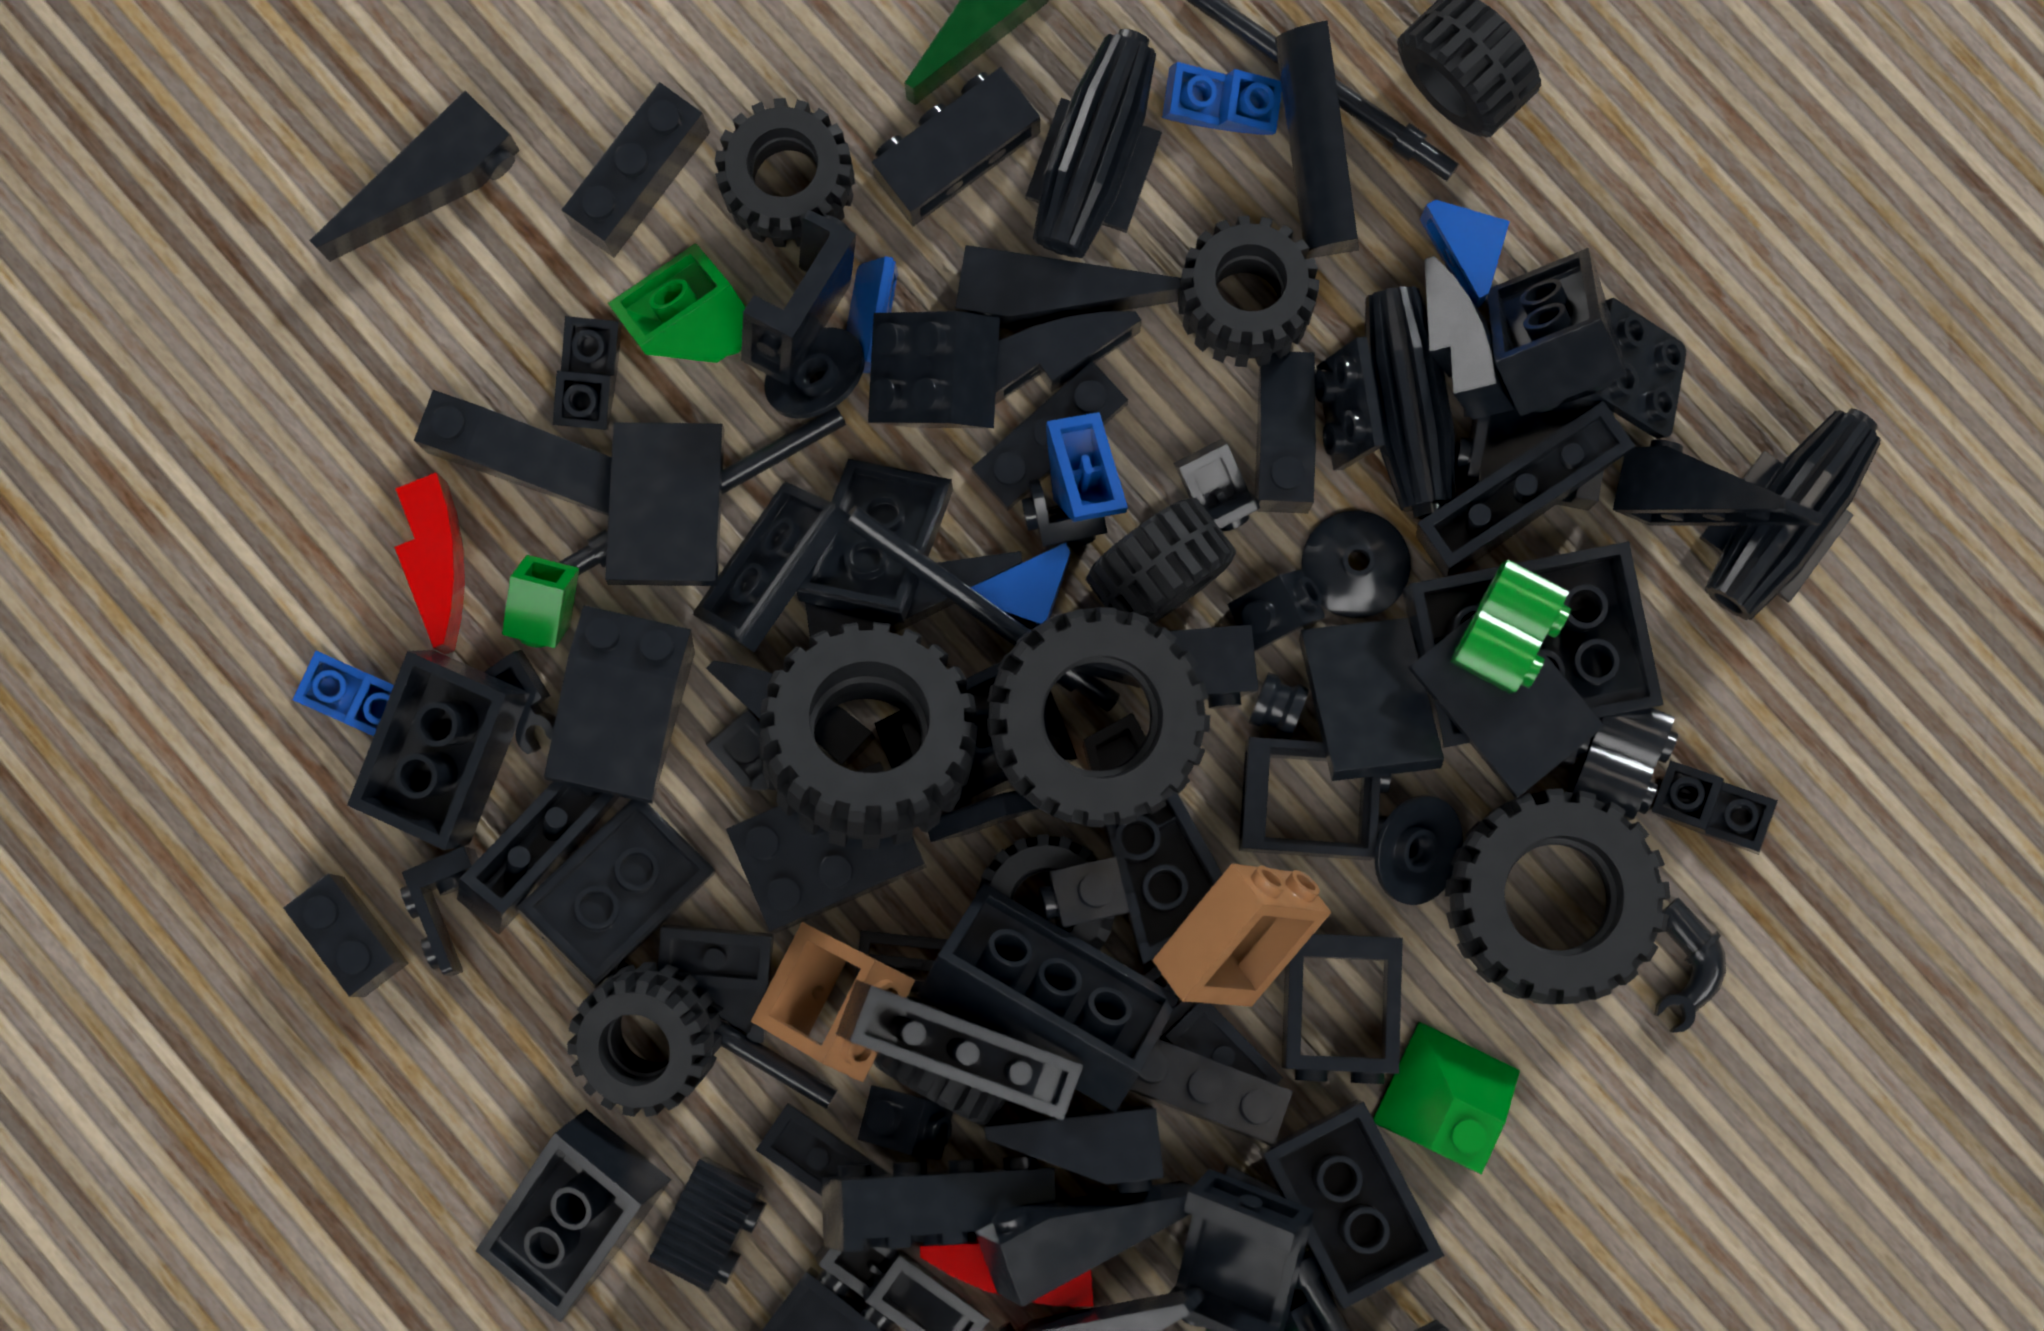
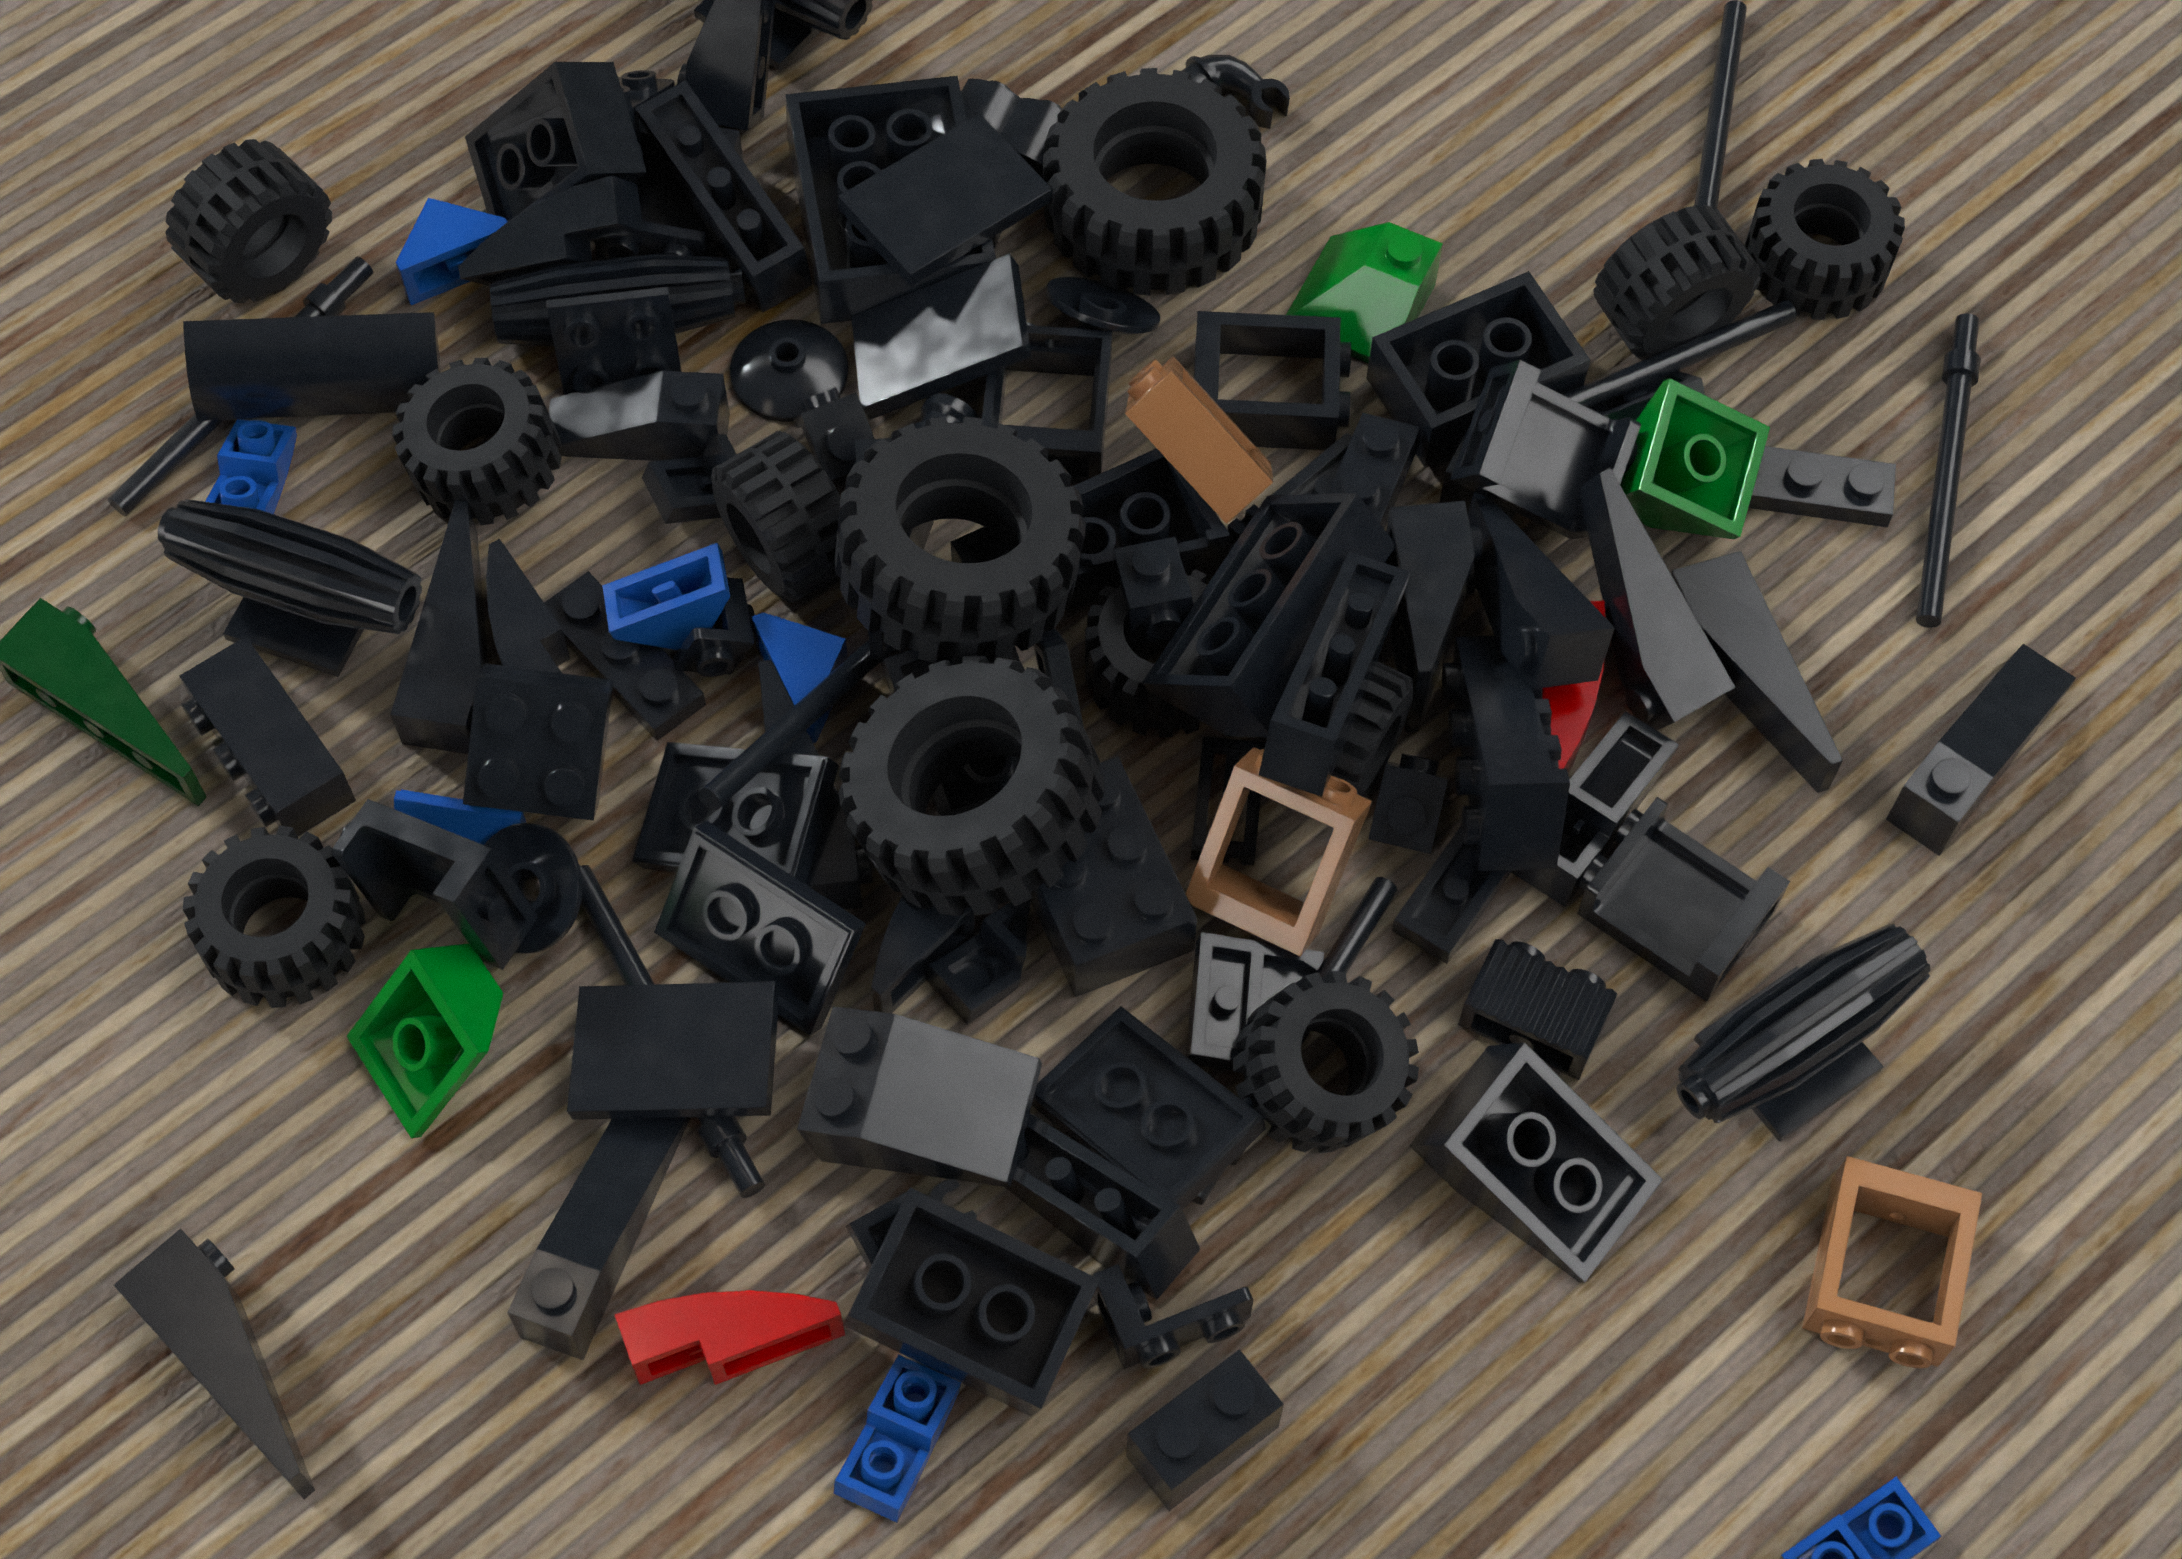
camera: 95 degrees left, 20 degrees down
(540, 602) = (788, 1194): green brick -> none
(587, 373) = (498, 1160): black slope -> none
(636, 170) = (247, 1089): black brick -> none
(1510, 628) = (874, 172): green brick -> none
(1714, 807) = (1062, 60): black slope -> none

